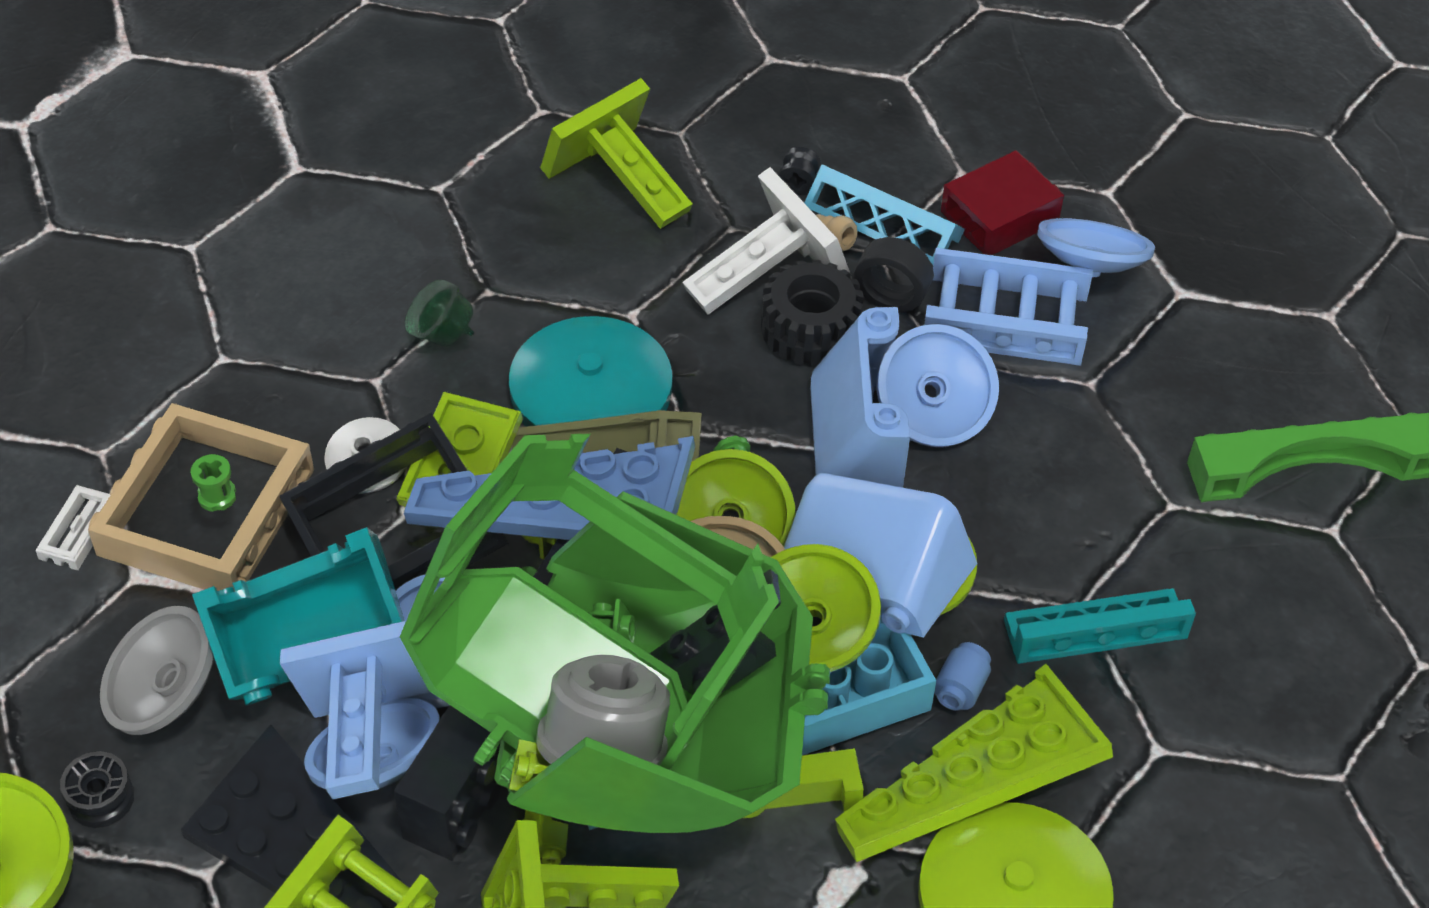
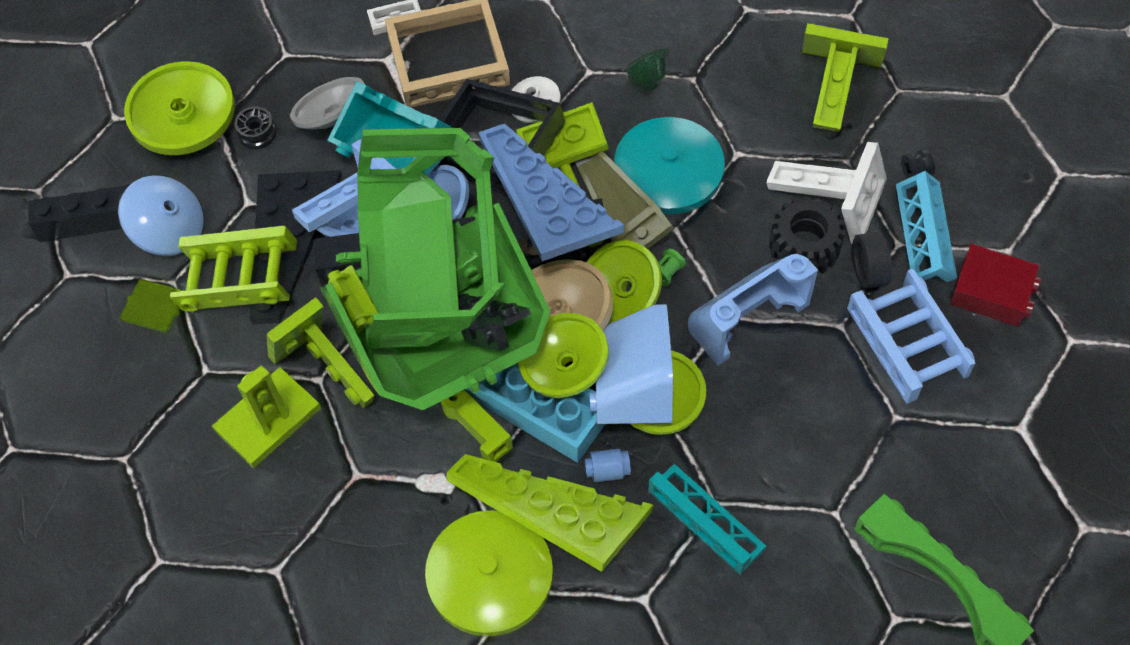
camera: 60 degrees right, 10 degrees up
(217, 475) = (440, 44): bright green bush -> none
(608, 702) = (382, 285): light grey wheel -> none
(842, 228) = (887, 212): tan piece -> none
(957, 370) = (783, 329): light blue dish -> none
(1095, 245) = (1003, 352): light blue dish -> none

